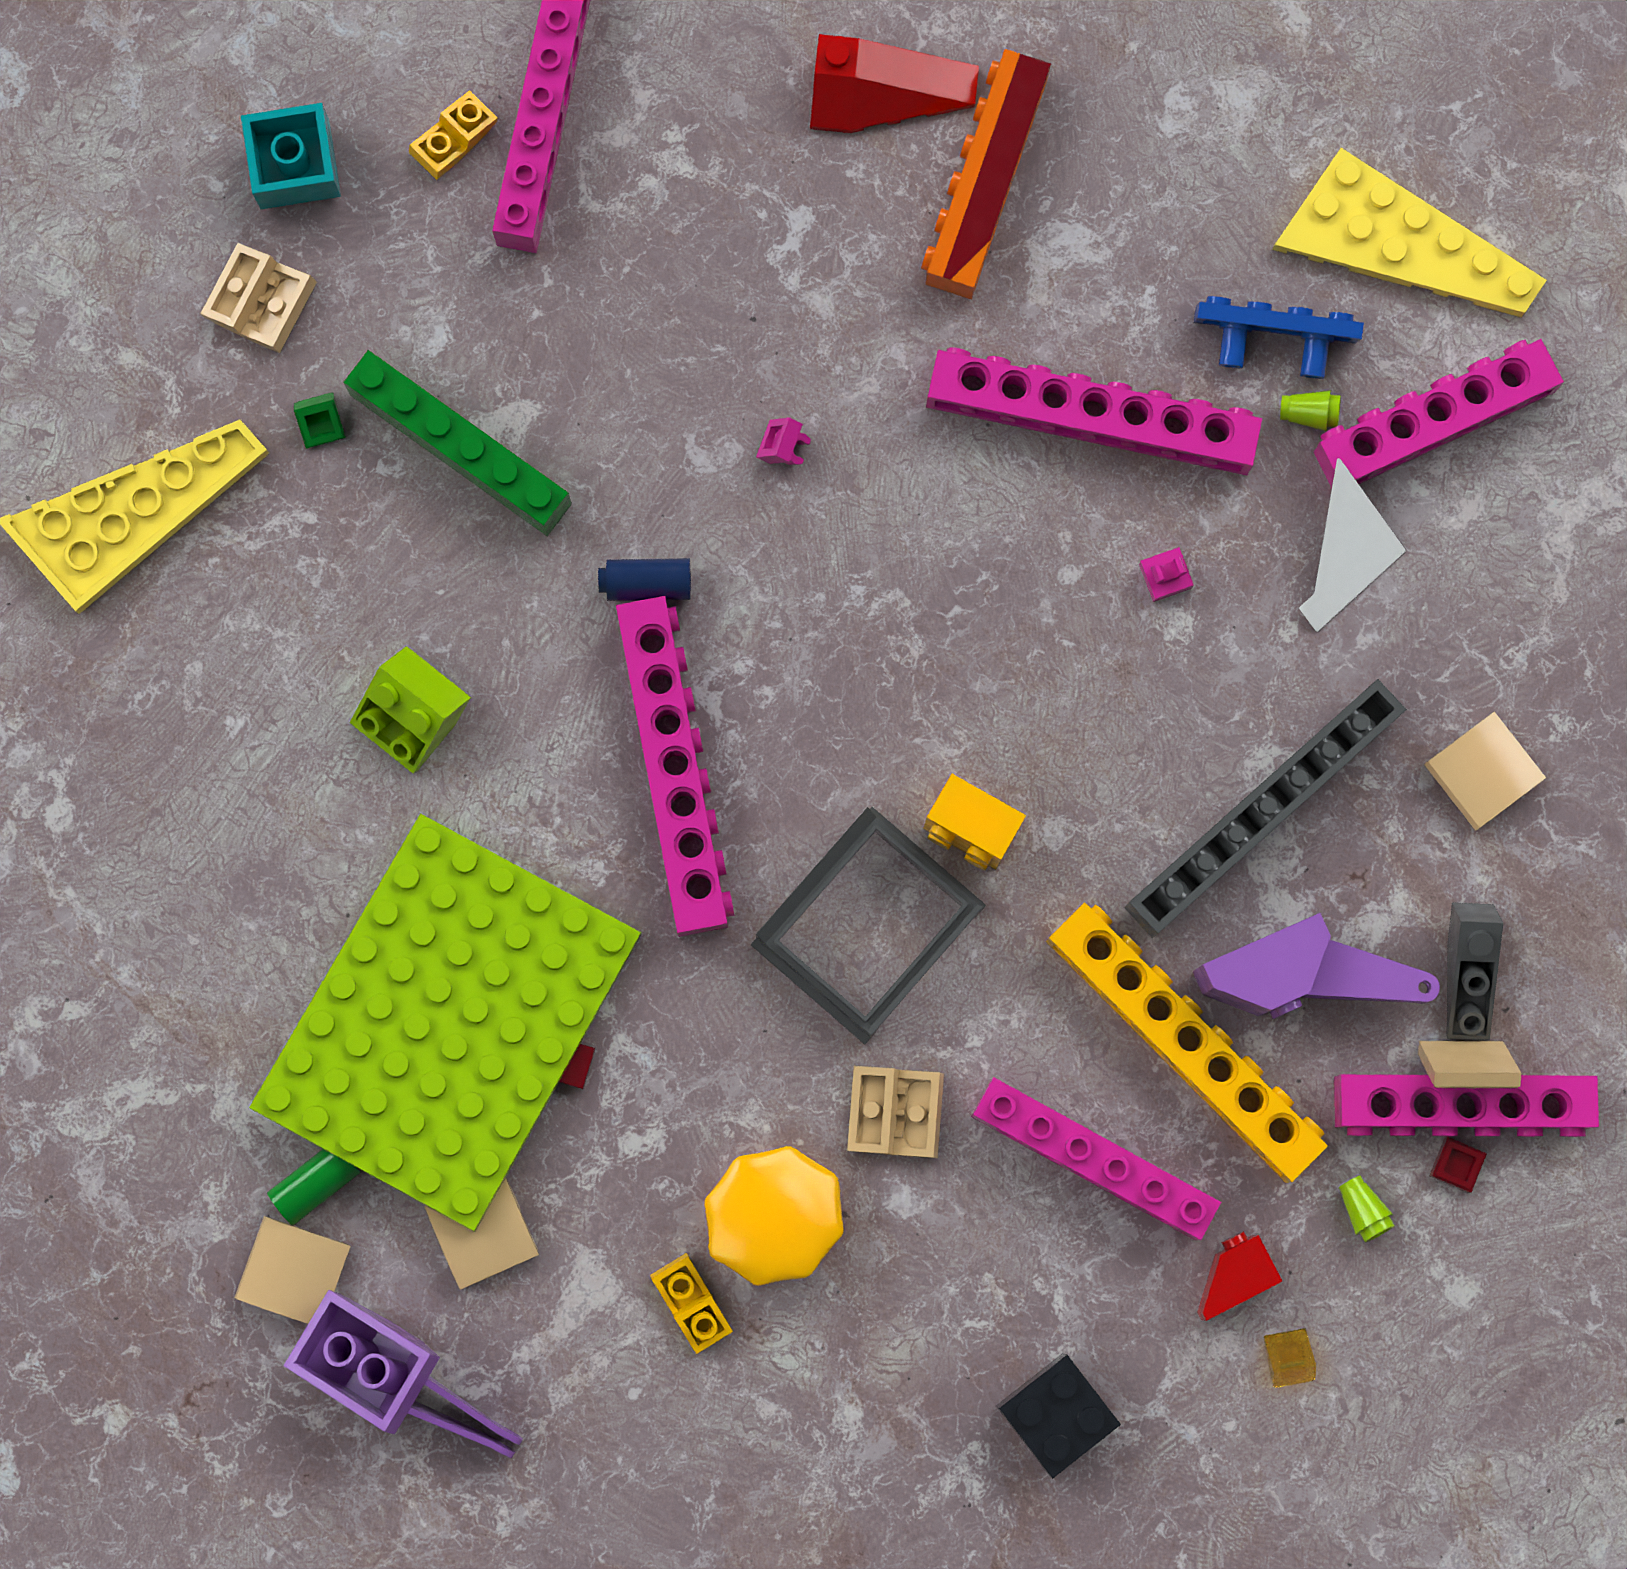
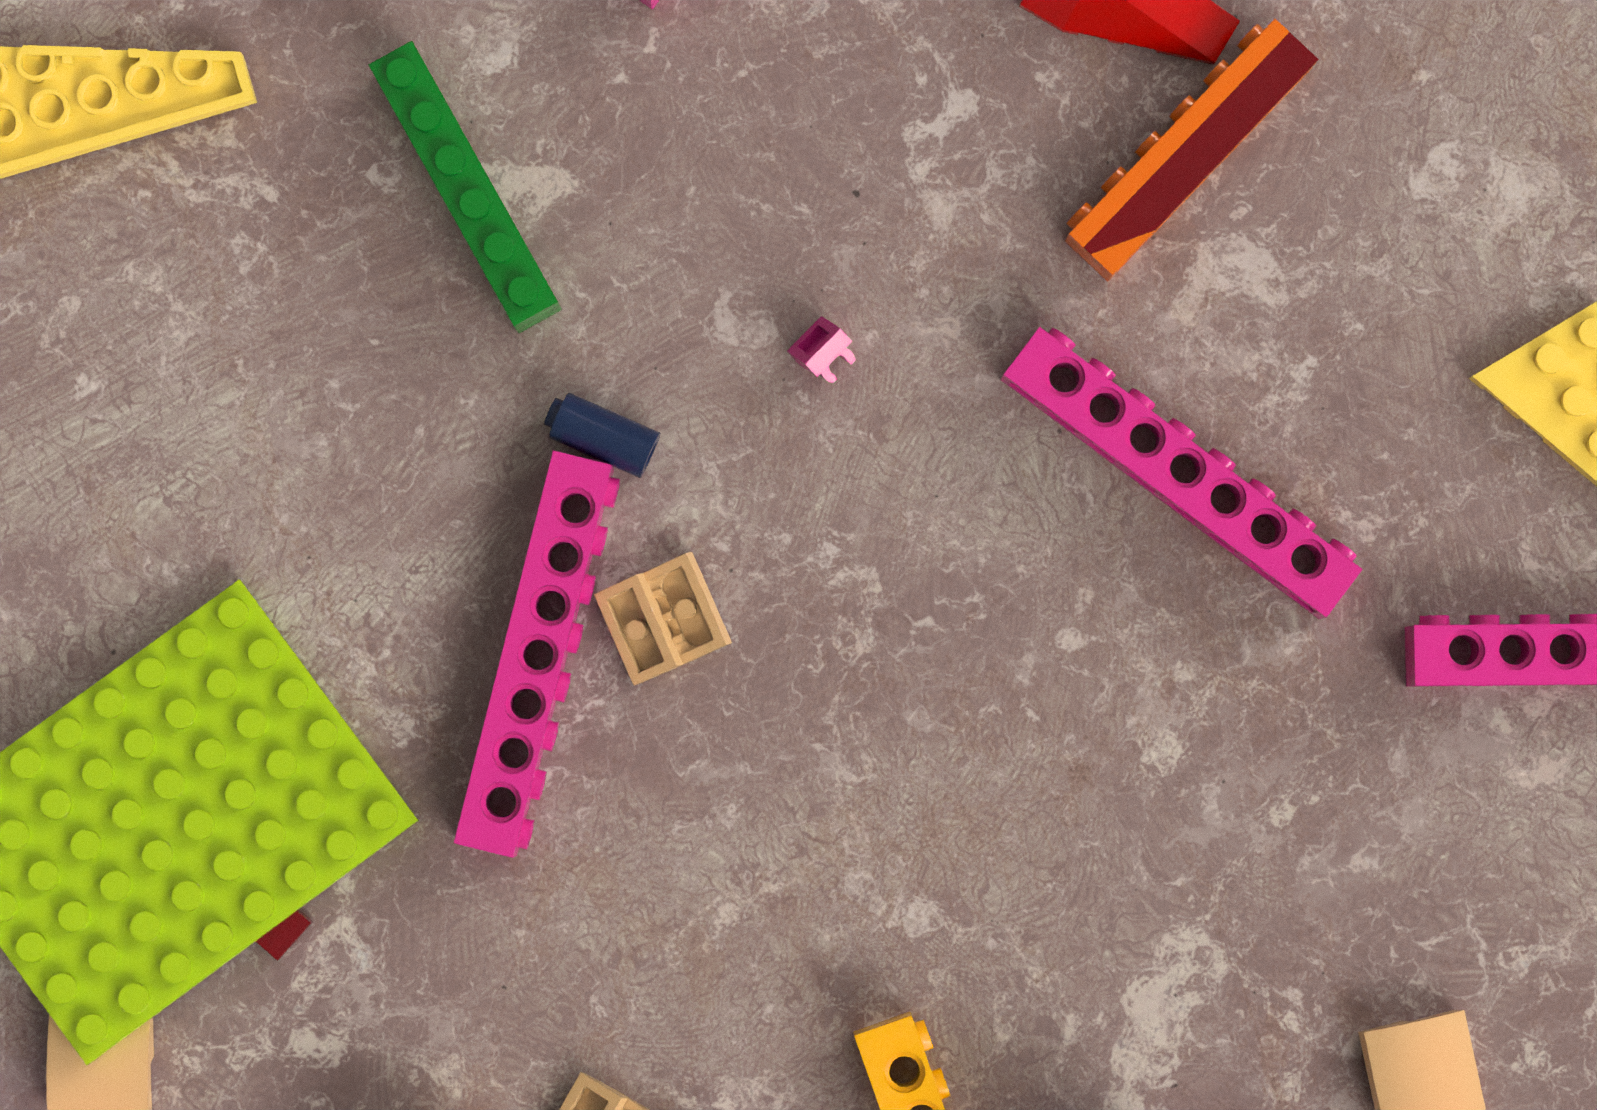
camera: 25 degrees right, 5 degrees up
(319, 420) = (328, 89): green slope -> none
(409, 708) = (279, 458): lime slope -> none
(756, 697) = (662, 618): none -> tan slope
(768, 936) = (721, 817): dark grey piece -> none
(972, 823) = (831, 873): yellow brick -> none
(1166, 574) = (1176, 689): dark pink tile -> none
(1265, 808) = (1159, 1003): dark grey brick -> none
(1298, 321) = (1470, 496): blue plate -> none
(1312, 409) = (1424, 581): lime cone -> none
(1353, 550) = (1394, 761): white sticker -> none

